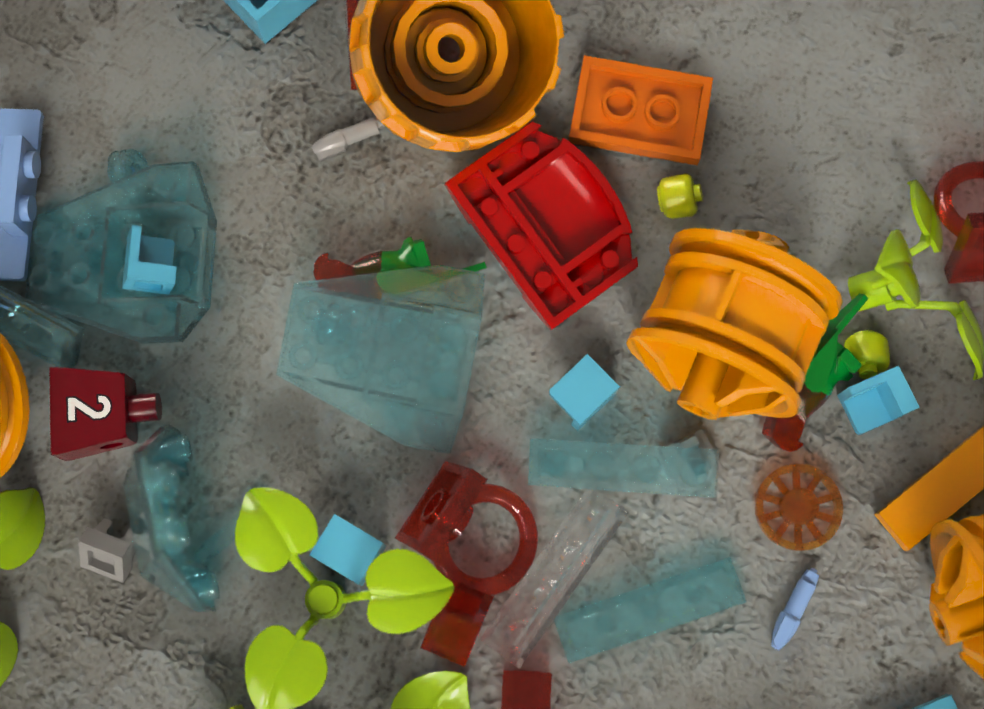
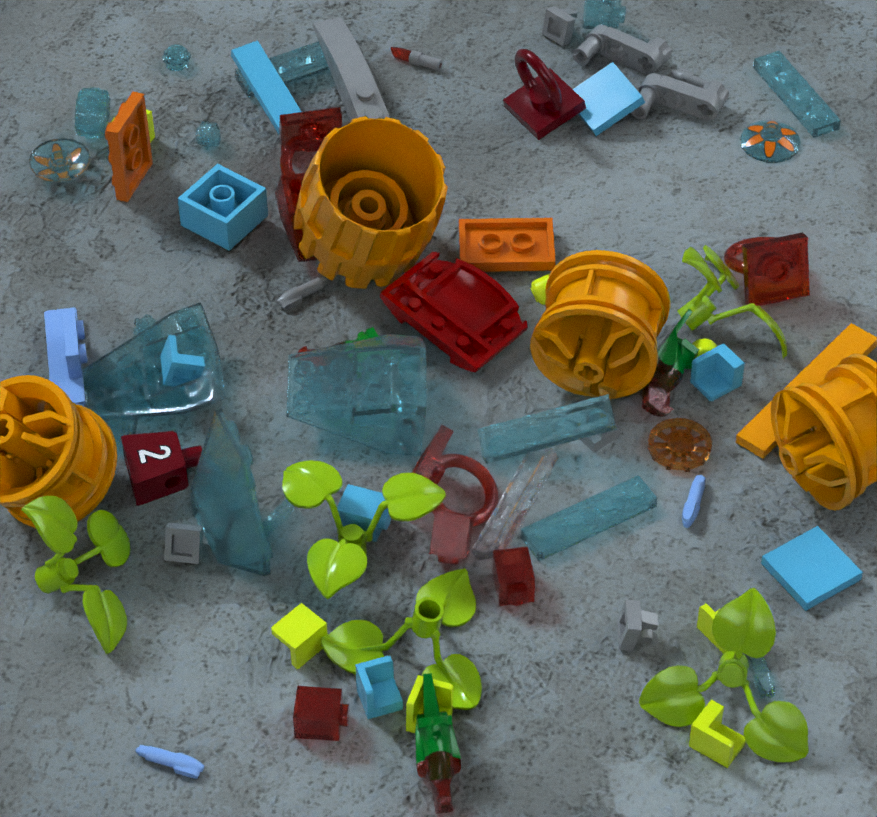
camera: 10 degrees left, 30 degrees down
(584, 391) = (511, 395): medium azure panel -> none

